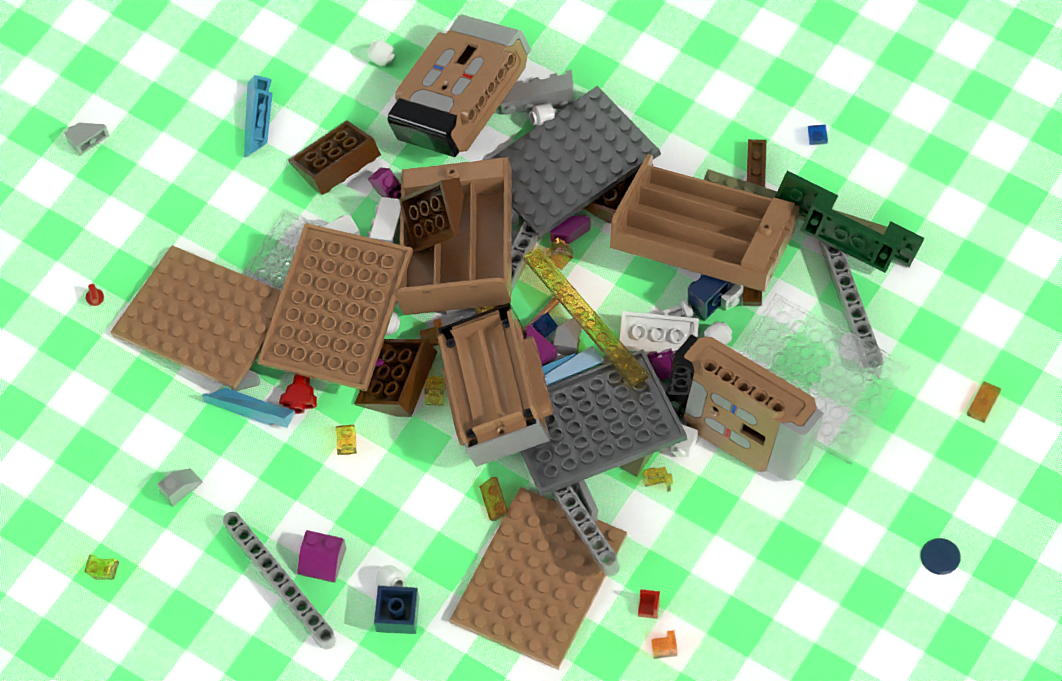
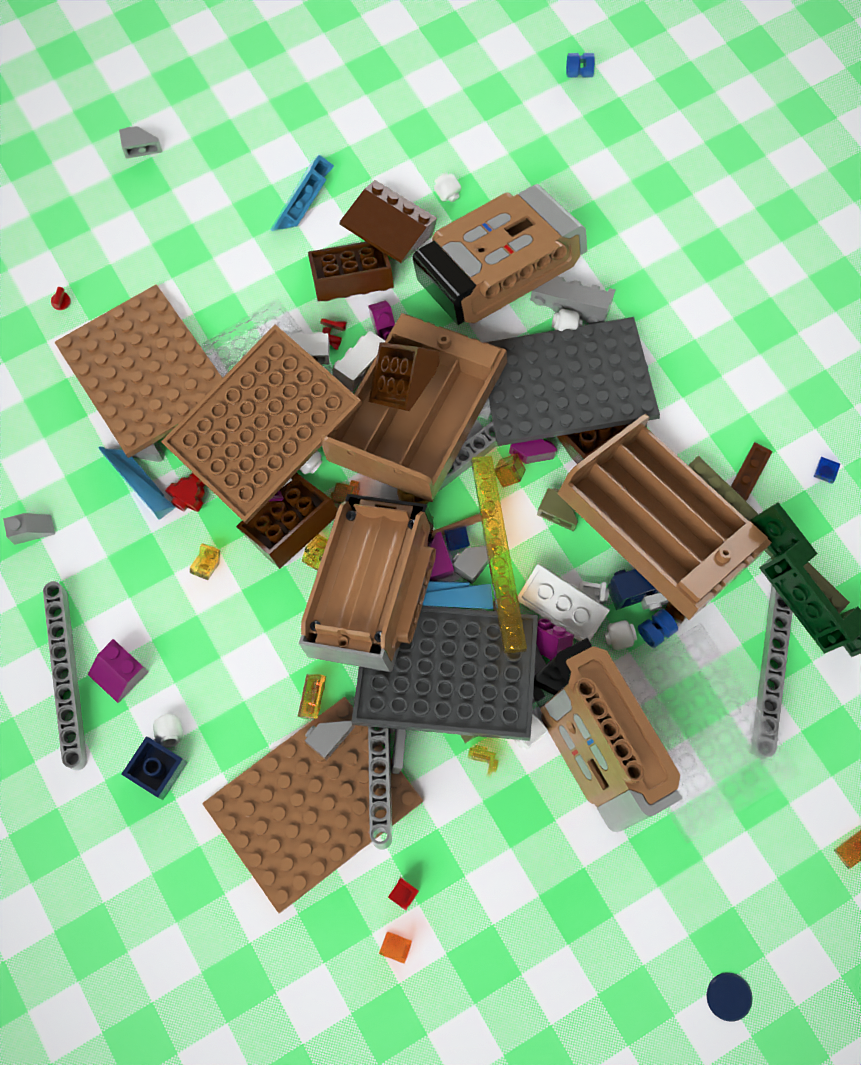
camera: 20 degrees right, 10 degrees up
(342, 209) = (335, 341): none -> red piece
(347, 102) = (389, 221): none -> reddish brown slope
(525, 518) = (328, 736): none -> light grey slope
(616, 265) = (557, 510): none -> olive slope
(744, 316) = (655, 630): none -> blue wheel

